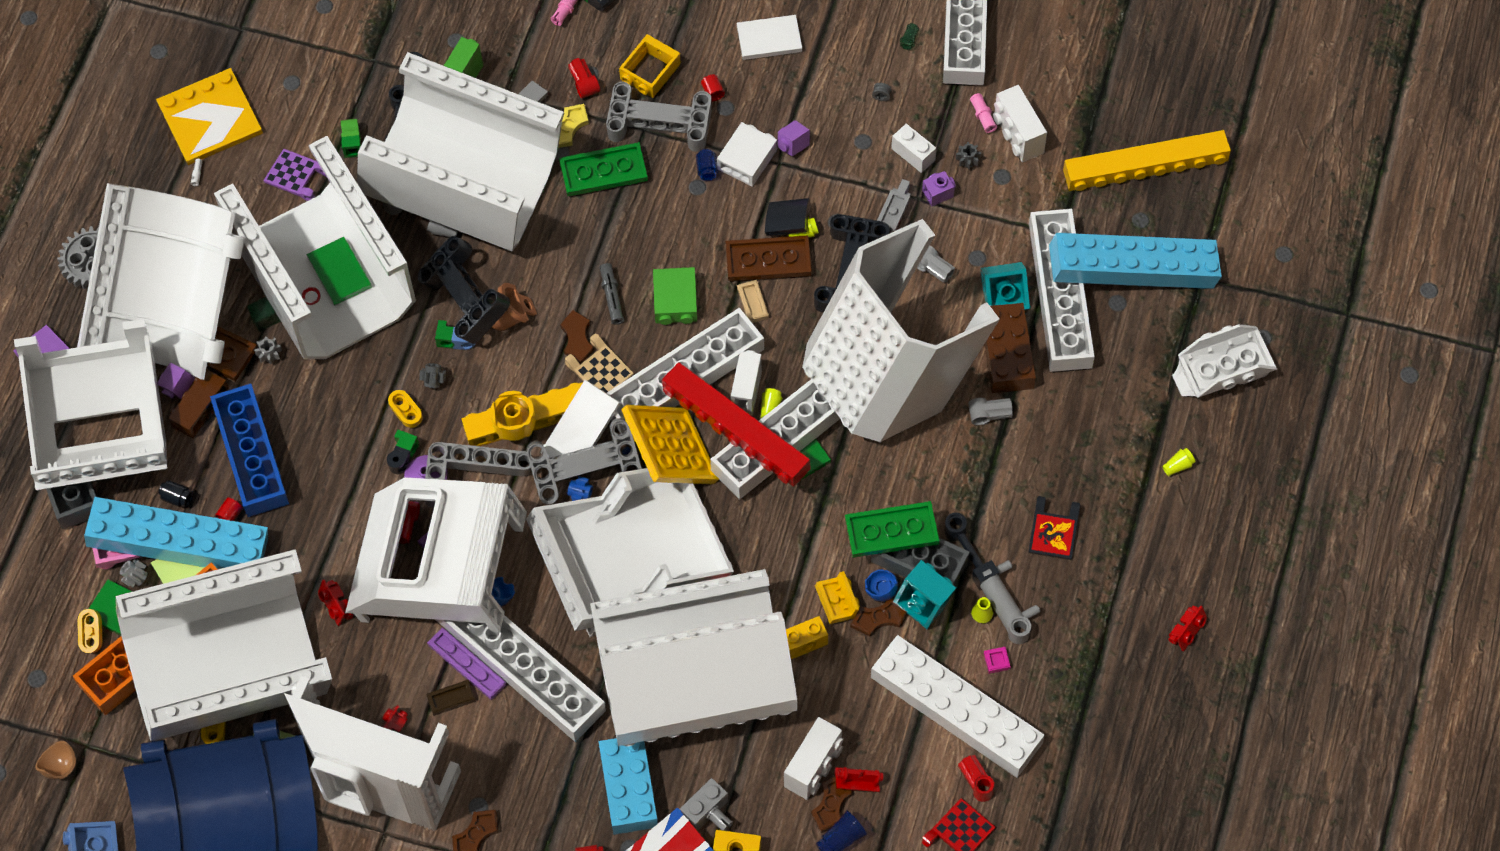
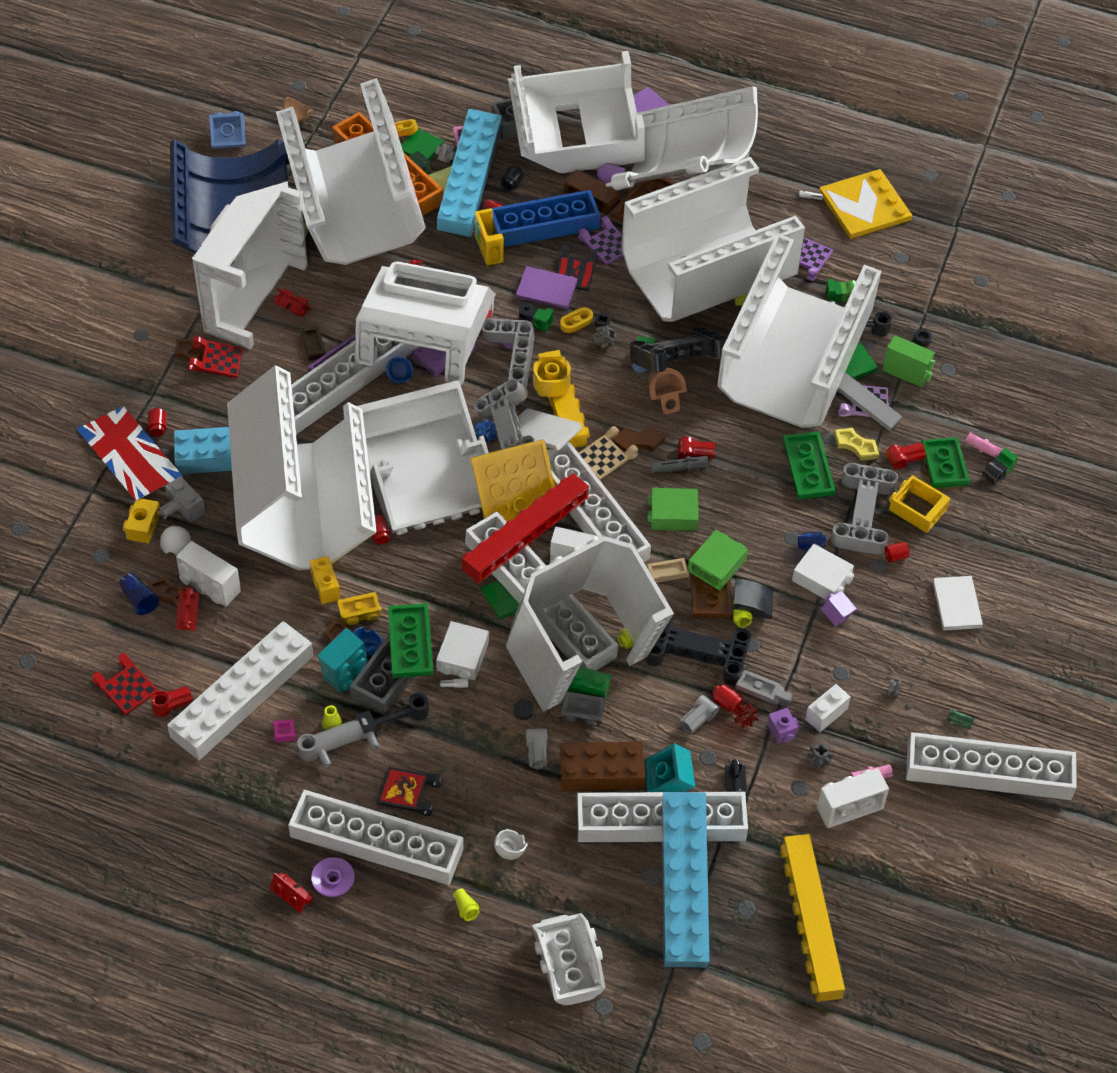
camera: 90 degrees right, 10 degrees down
(279, 384) = (607, 242): none -> medium lavender flag
(285, 514) = (490, 246): none -> yellow panel
(324, 416) = (577, 268): none -> black flag
(354, 444) = (546, 288): none -> medium lavender tile
(403, 375) = (602, 320): none -> black bush
(483, 800) = (217, 358): none -> red flag
(589, 282) = (689, 447): none -> red piece
(591, 43) = (945, 463): none -> green tile
(747, 245) = (718, 559): none -> bright green brick
(758, 811) = (174, 539): none -> white hair
(880, 487) = (462, 650): none -> white brick
(917, 492) = (456, 683): none -> white pin
(933, 219) = (749, 719): none -> clear red gear
(943, 428) = (523, 709): none -> black tile
(1007, 230) = (735, 777): none -> black hinge
(1109, 424) = (510, 844): none -> white hair
(1120, 549) = (376, 837): none -> white brick
(1168, 578) = (332, 869): none -> medium lavender dish

